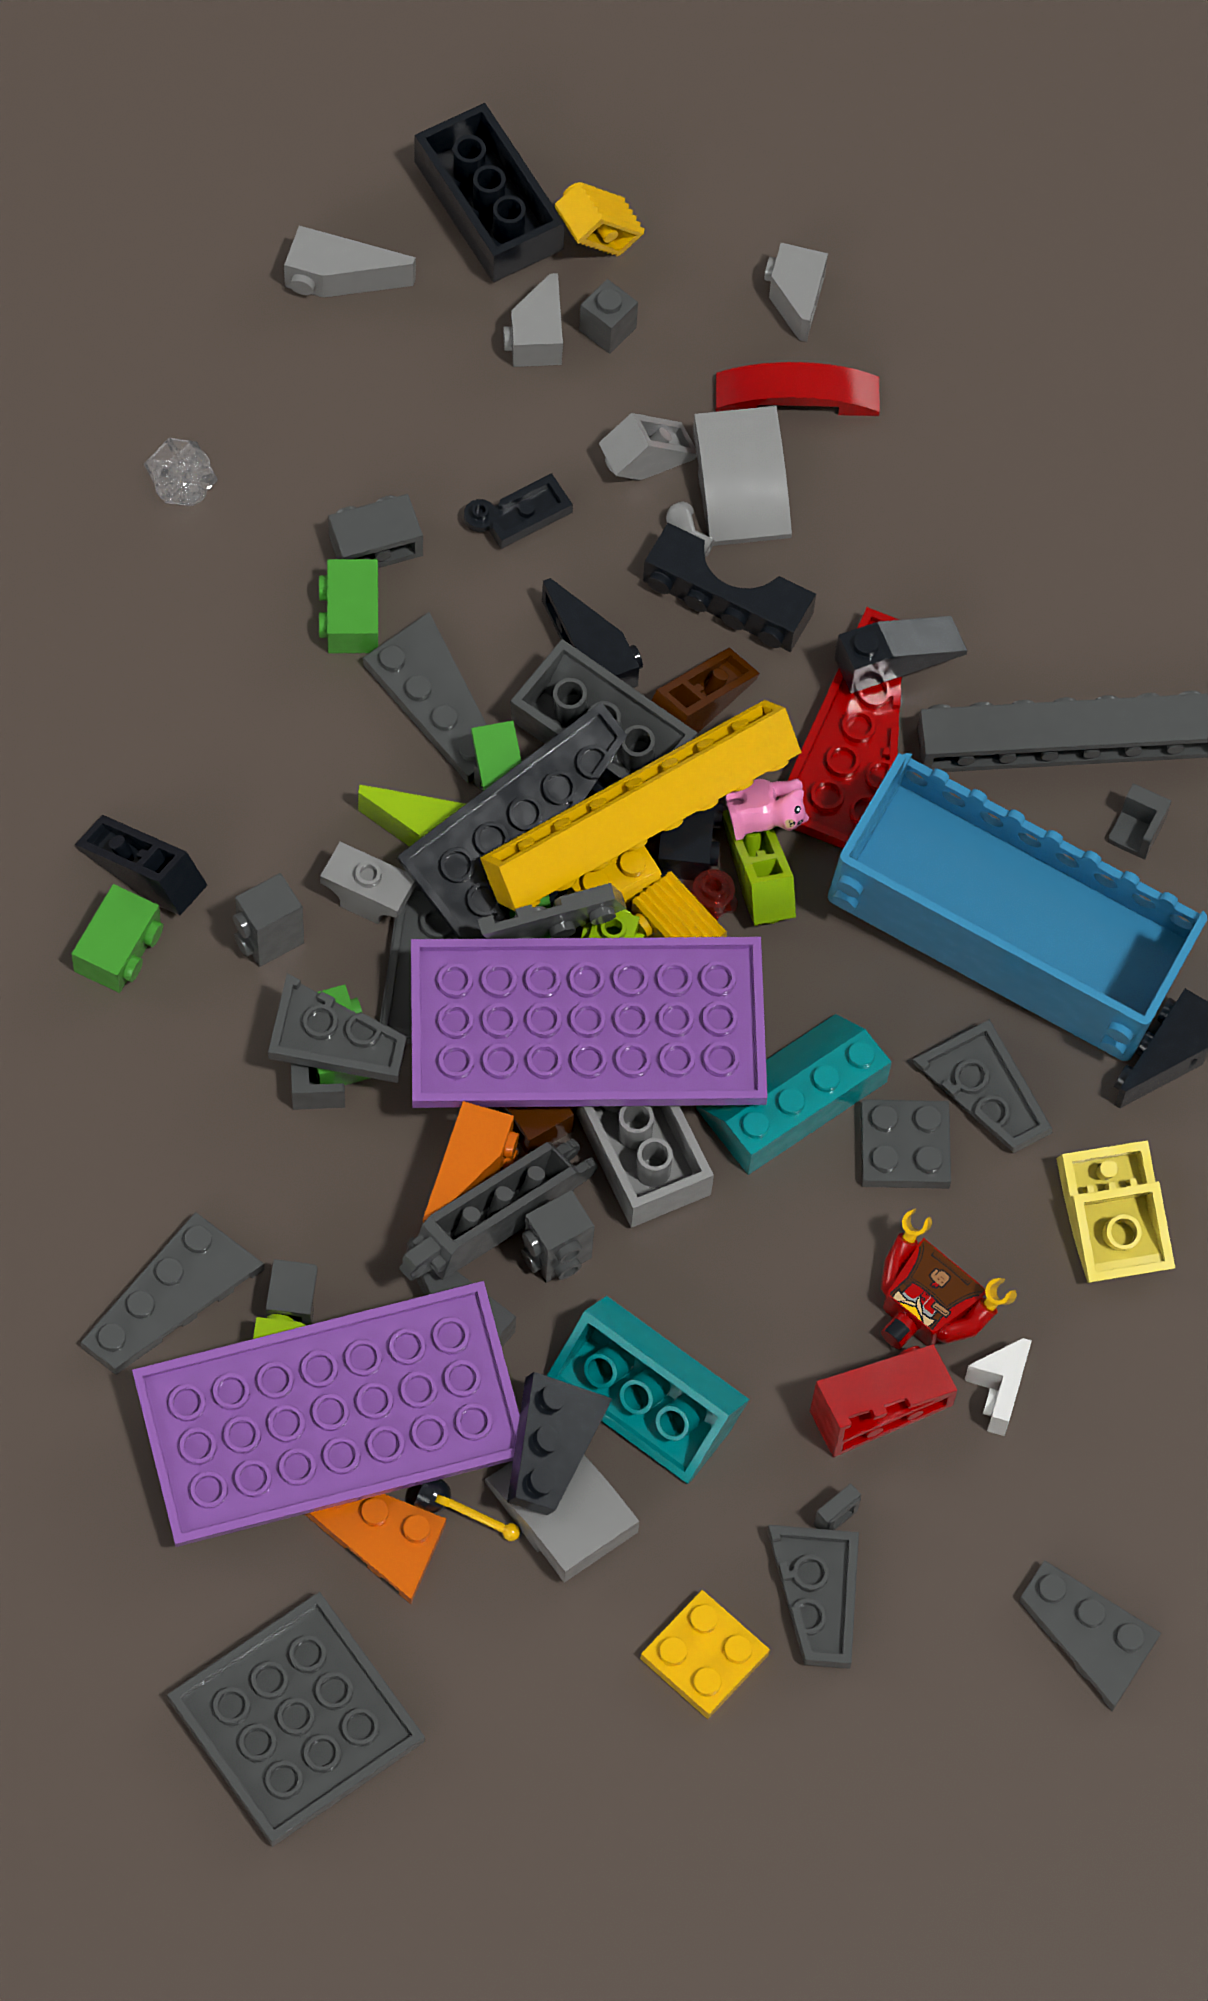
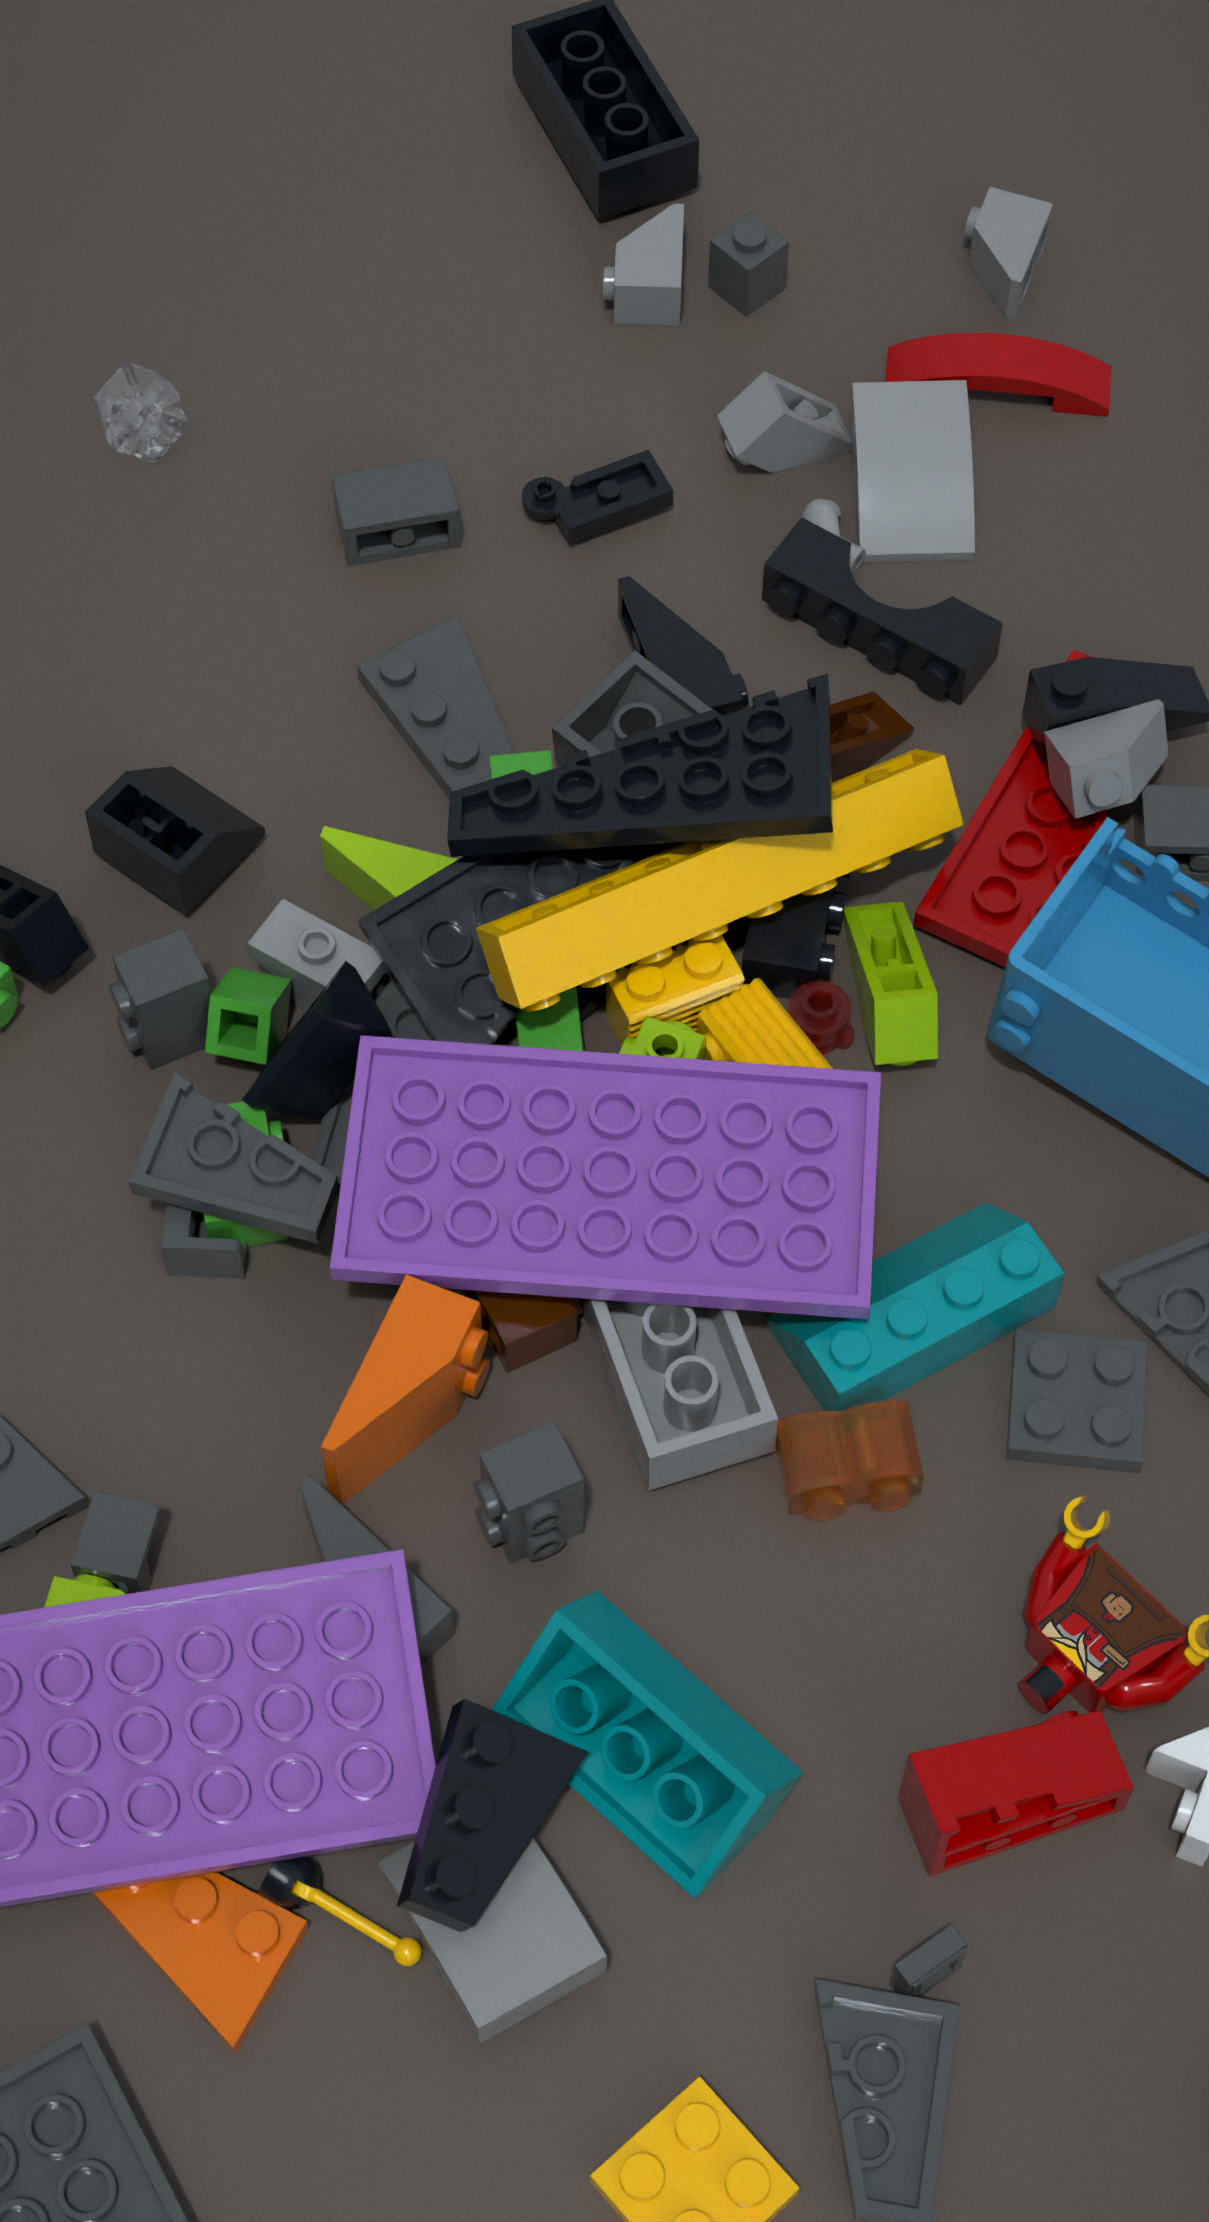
camera: 10 degrees right, 5 degrees down
(251, 796) = (169, 834): none -> black slope
(326, 925) = (248, 1015): none -> bright green brick
(340, 266) = (400, 184): light grey slope -> none
(351, 605) = (349, 597): bright green brick -> none
(380, 946) = (320, 1050): none -> black slope
(494, 1210) = (433, 1444): dark grey hinge -> none
(570, 911) = (597, 1020): dark grey wing -> none
(598, 218) = (747, 142): yellow brick -> none
(611, 744) = (680, 782): none -> black wing
(759, 810) = (906, 898): bright pink animal -> none
(760, 1196) = (849, 1459): none -> clear orange brick
(895, 693) = (1107, 757): none -> light grey slope

